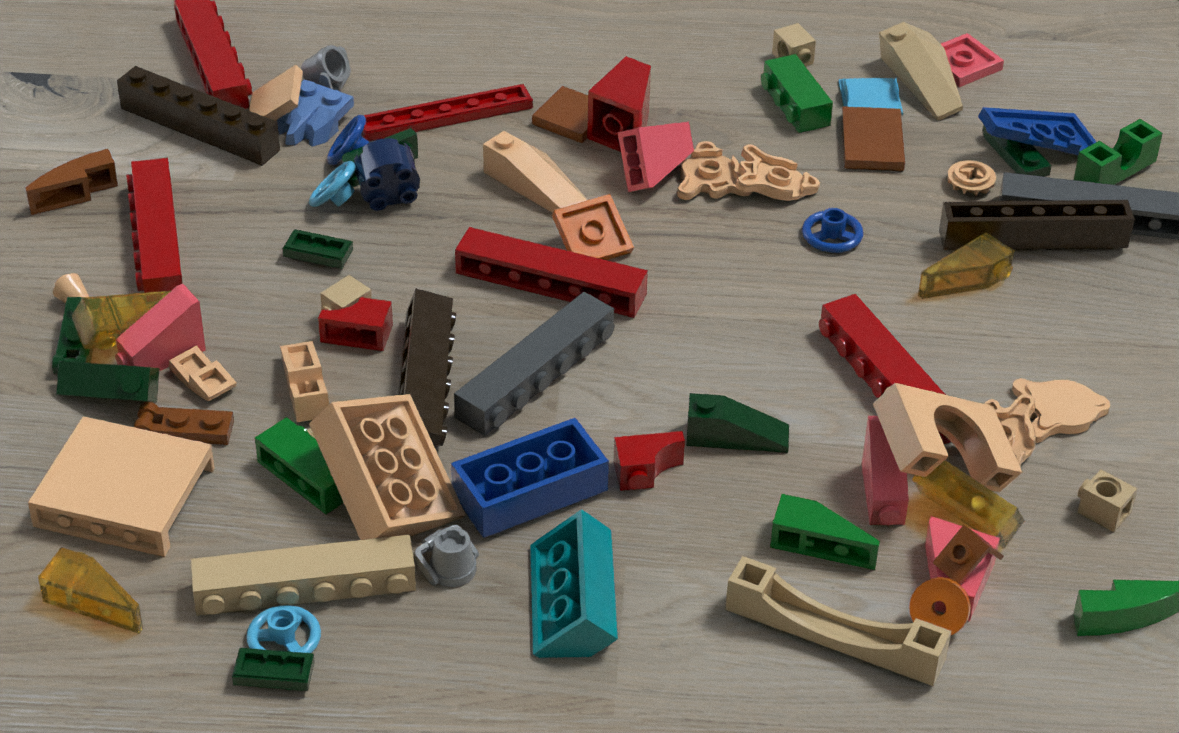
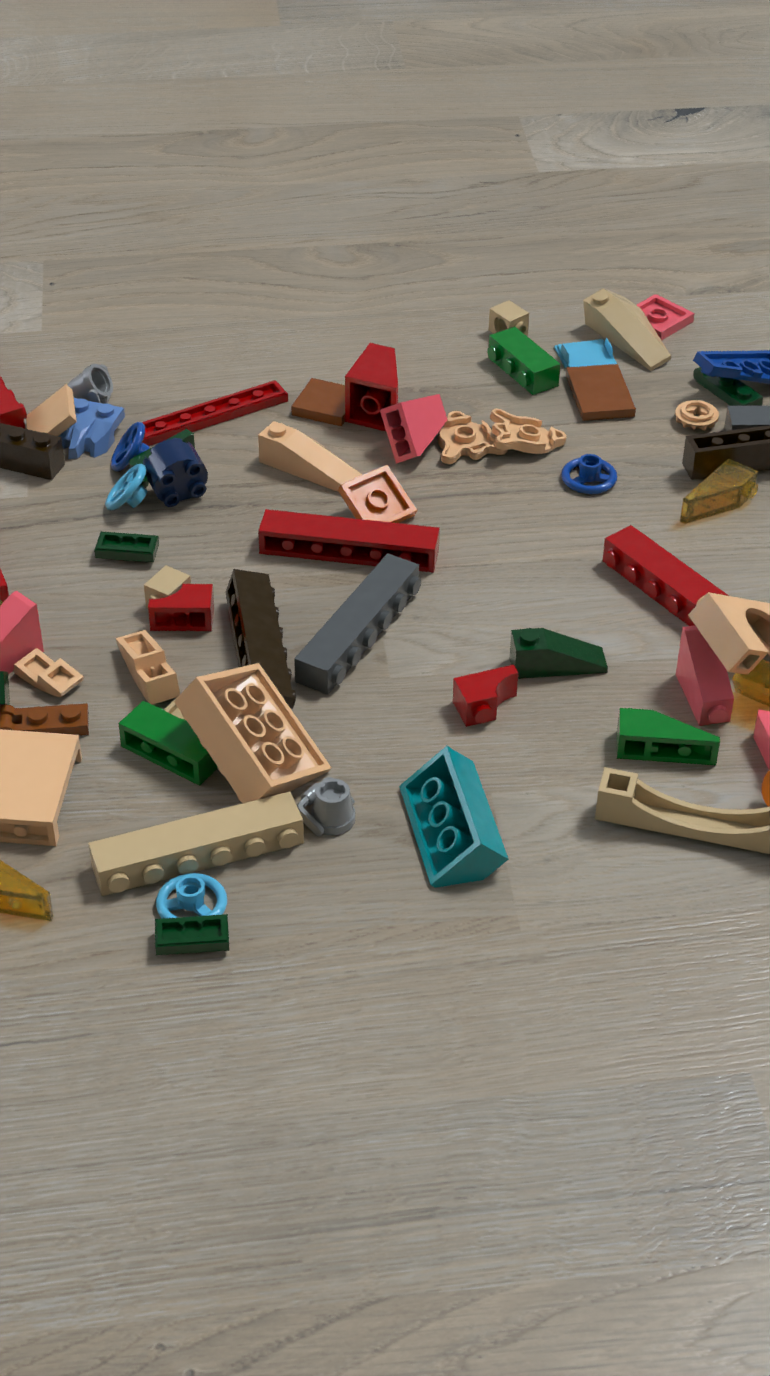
camera: 10 degrees left, 0 degrees up
(529, 477) = (385, 724): blue brick -> none

